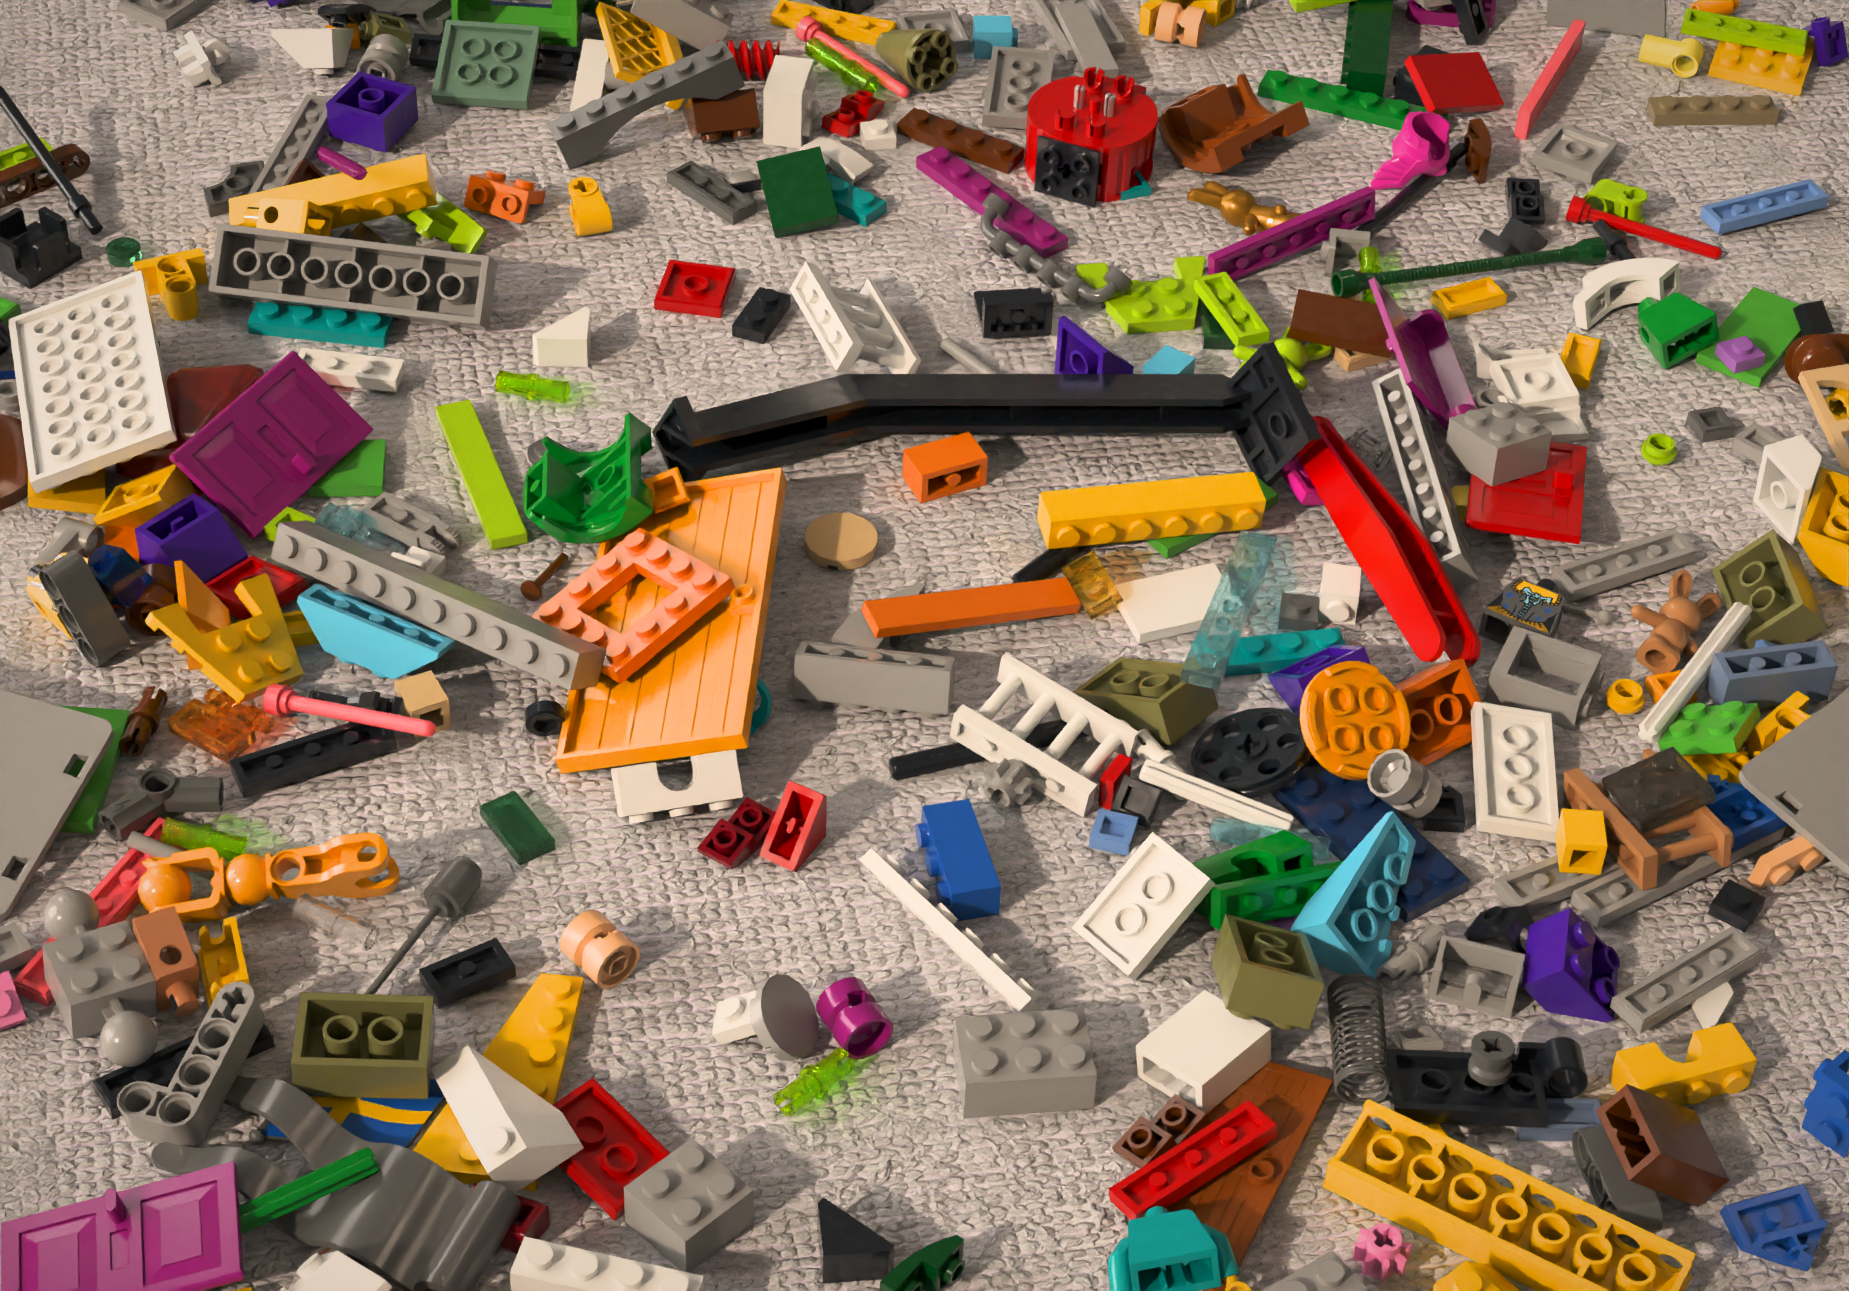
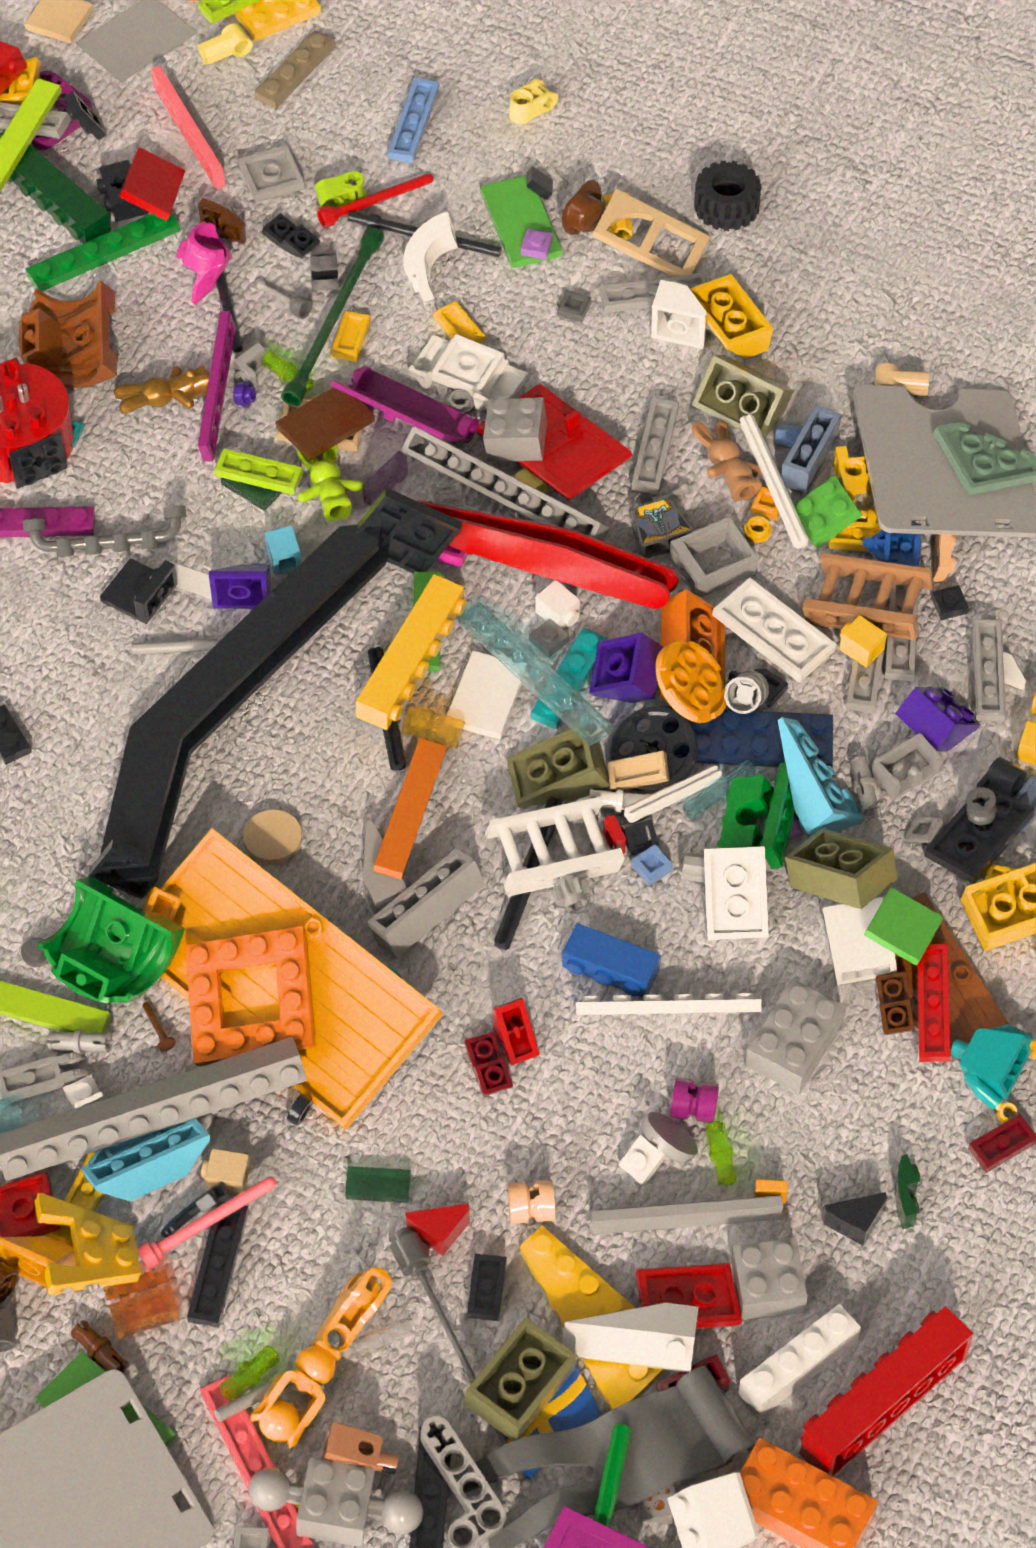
camera: 50 degrees left, 15 degrees up
(161, 797) = (186, 1394): dark grey piece -> none
(221, 959) = (378, 1419): yellow hinge -> none
(472, 528) = (79, 1041): none -> light grey pin
(507, 896) = (439, 1226): none -> red slope
(708, 1092) = (686, 1215): none -> light grey tile
(713, 781) = (419, 1094): white arch -> none
(805, 1149) = (770, 1187): none -> light orange tile
(843, 340) = (82, 703): white fence -> none
(944, 467) = (259, 733): orange brick -> none
(1152, 305) = (206, 498): lime wing -> none
(1210, 753) = (638, 771): none -> tan tile
(1251, 1066) = (903, 926): none -> bright green tile
(1303, 259) = (244, 394): none -> dark purple plate
(1336, 397) = (390, 474): none -> clear purple plate
(1347, 1071) = (879, 830): dark grey piece -> none
(1453, 240) = (299, 305): none -> dark grey hinge
(1499, 923) = (879, 726): black bracket -> none
(1658, 789) = (863, 575): clear smoke plate -> none
(1659, 449) = (575, 344): lime plate -> none
(1675, 328) = (485, 257): green torso -> none

